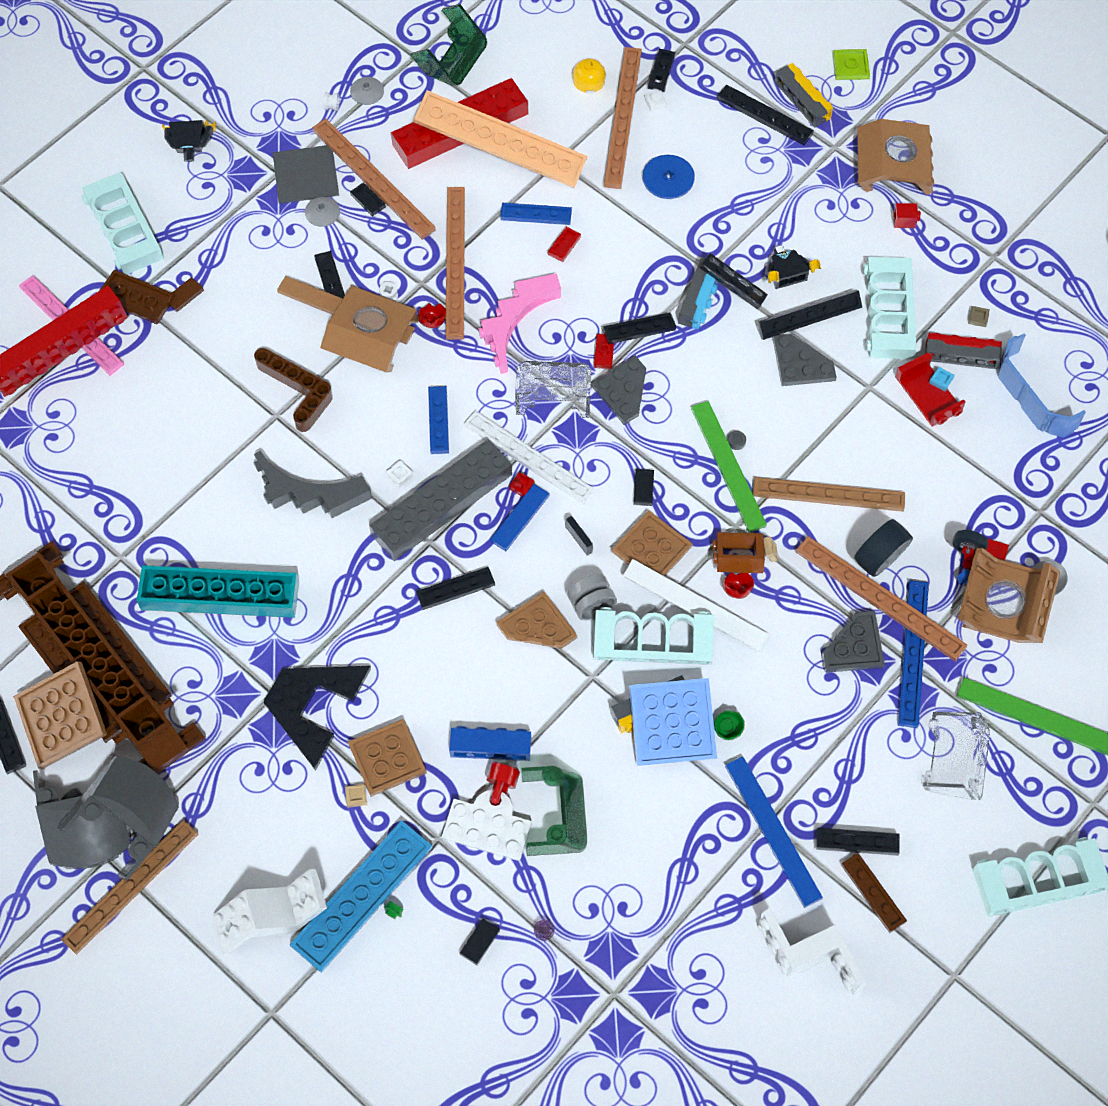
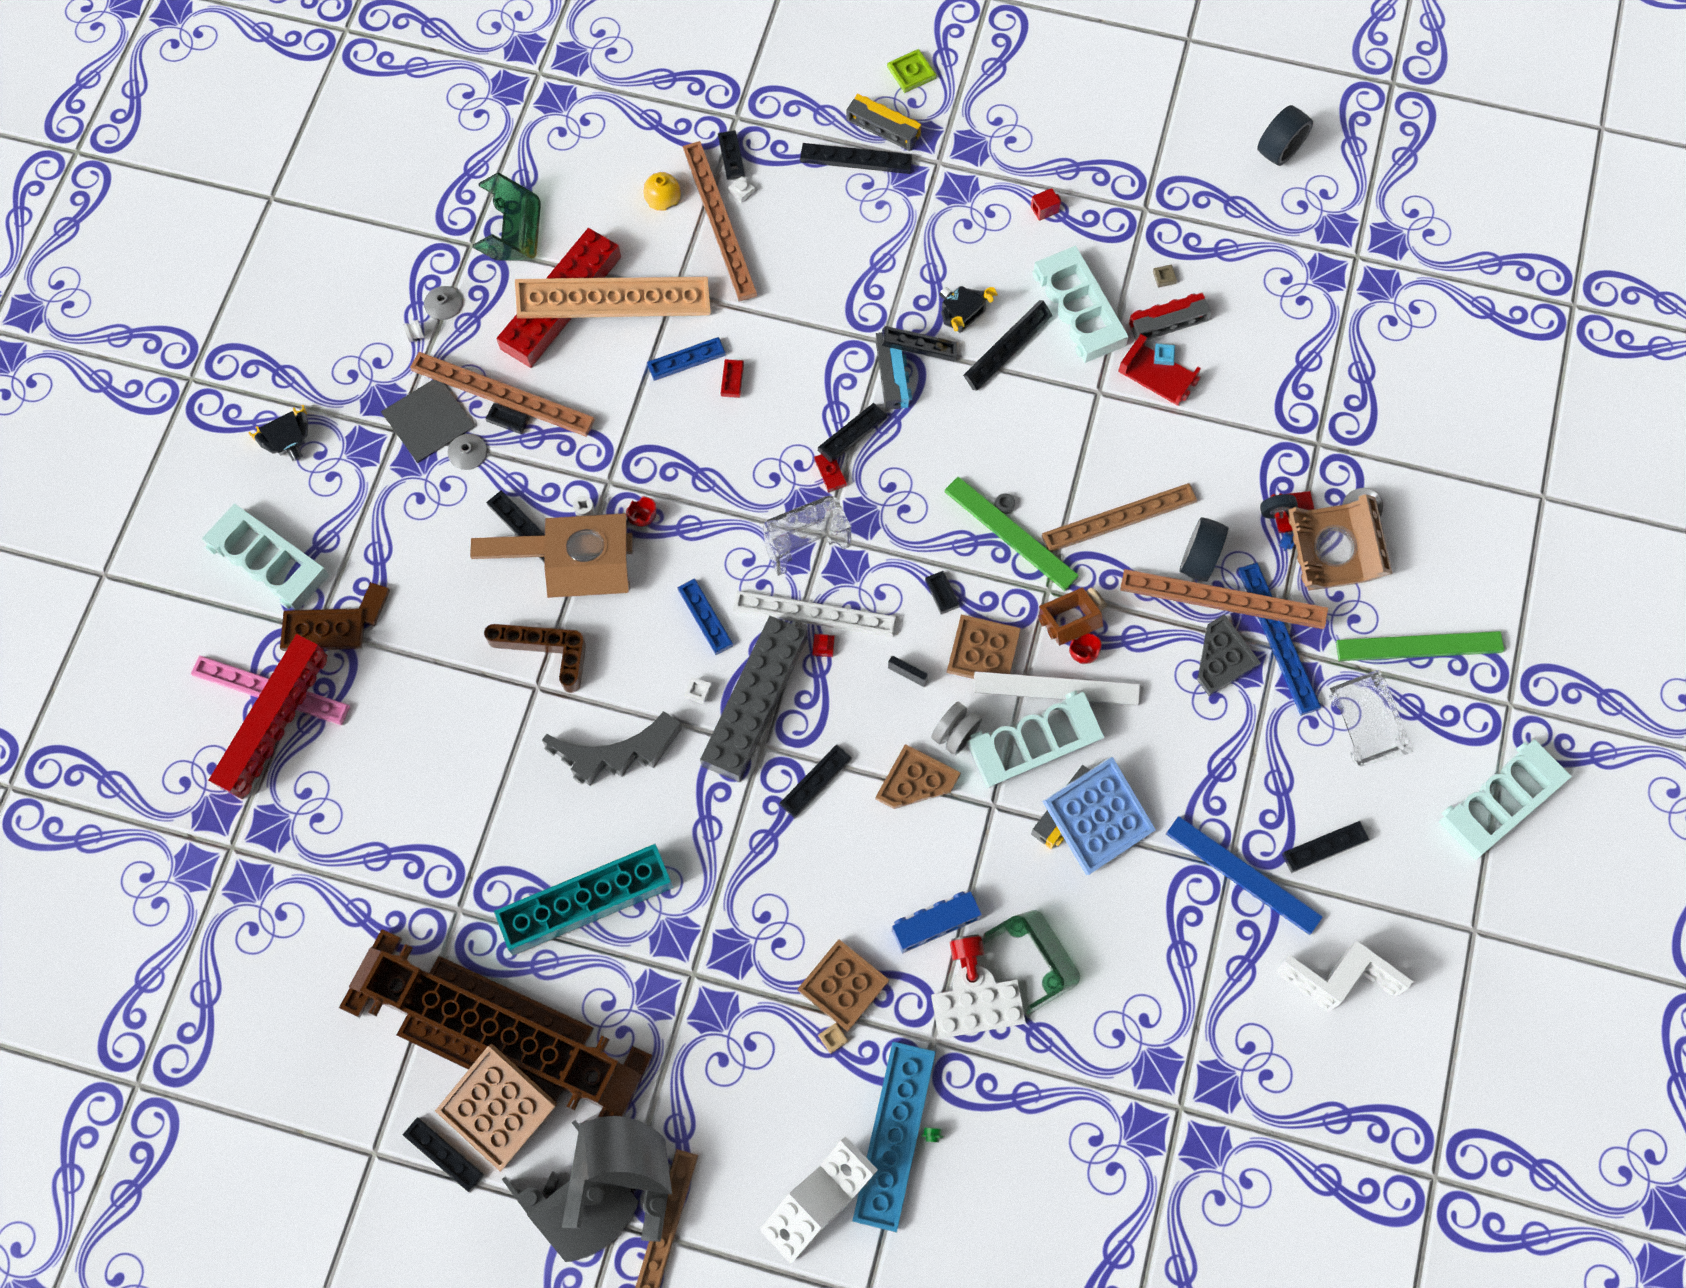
camera: 25 degrees left, 5 degrees up
(293, 693) = (715, 967): black wing -> none
(455, 263) = (634, 446): nougat plate -> none
(479, 942) = (1030, 1122): black tile -> none
(520, 517) = (839, 679): blue tile -> none
(527, 296) = (724, 449): bright pink arch -> none
(544, 930) = (1085, 1080): clear purple plate -> none
(623, 389) = (869, 501): dark grey plate -> none
(660, 185) = (794, 275): blue piece -> none
(729, 725) = (1151, 792): green hair -> none
(801, 363) = (1024, 397): dark grey plate -> none
(873, 893) = (1364, 888): reddish brown tile -> none
(895, 153) = (1004, 146): medium nougat panel -> none
(1030, 403) = (1252, 337): medium blue windscreen -> none

